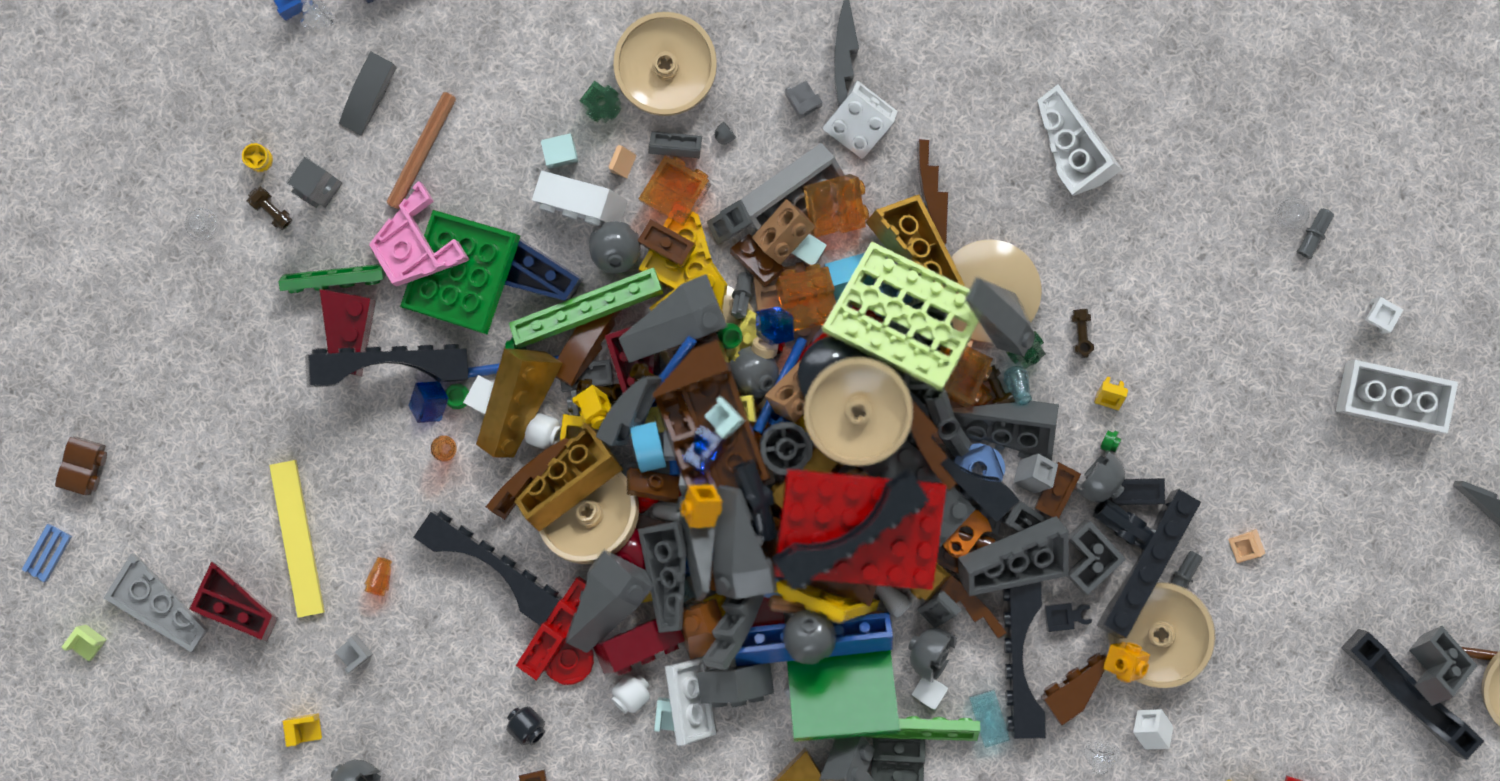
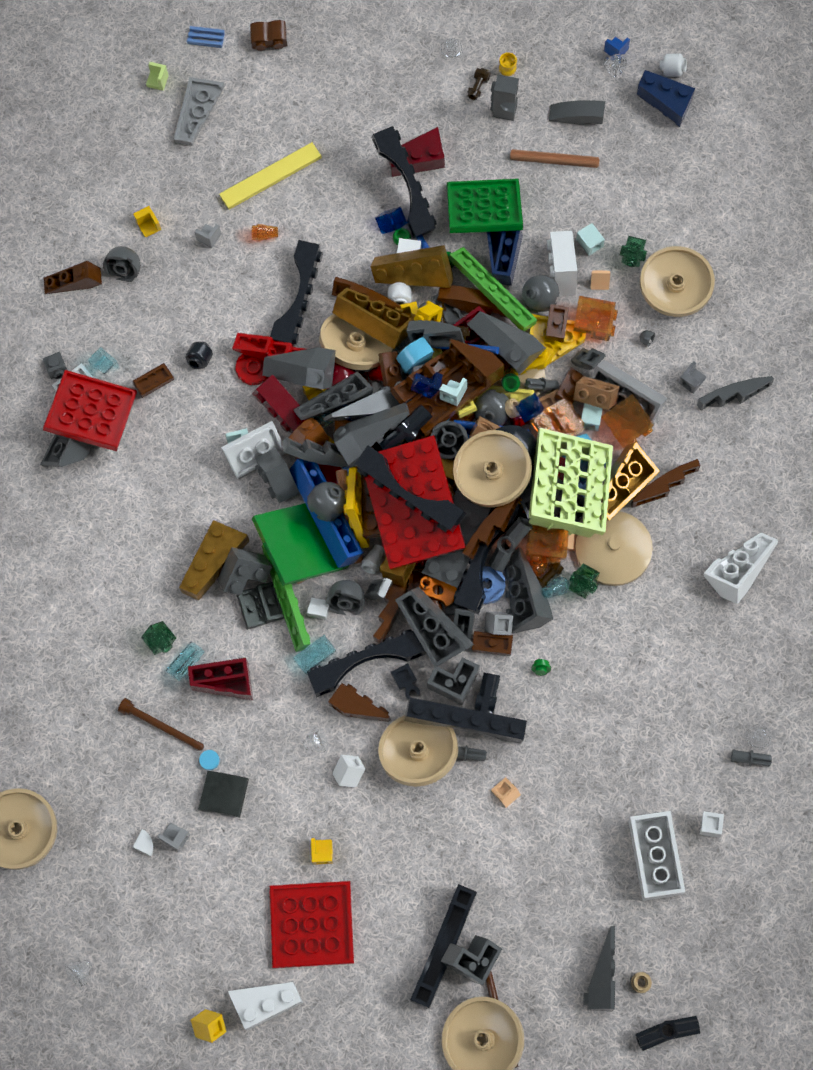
camera: 70 degrees right, 15 degrees down
(231, 604) = (213, 150): dark red wedge -> none
(323, 279) = (445, 130): green plate -> none
(405, 250) = (486, 168): bright pink wing -> none
(437, 448) = (364, 238): clear orange cone -> none
(630, 693) = (245, 412): white head -> none
(675, 144) = (626, 308): dark grey plate -> none
(701, 506) = (388, 394): light orange brick -> none
(860, 120) = (695, 418): white bracket -> none
(1001, 316) = (599, 546): dark grey wedge -> none
(1084, 346) = (601, 623): dark brown bar -> none
(1103, 479) = (512, 666): dark grey cylinder -> none
(1111, 395) = (574, 654): yellow tile -> none
(1127, 661) = (389, 727): light orange brick -> none
(1142, 492) = (514, 699): black tile -> none

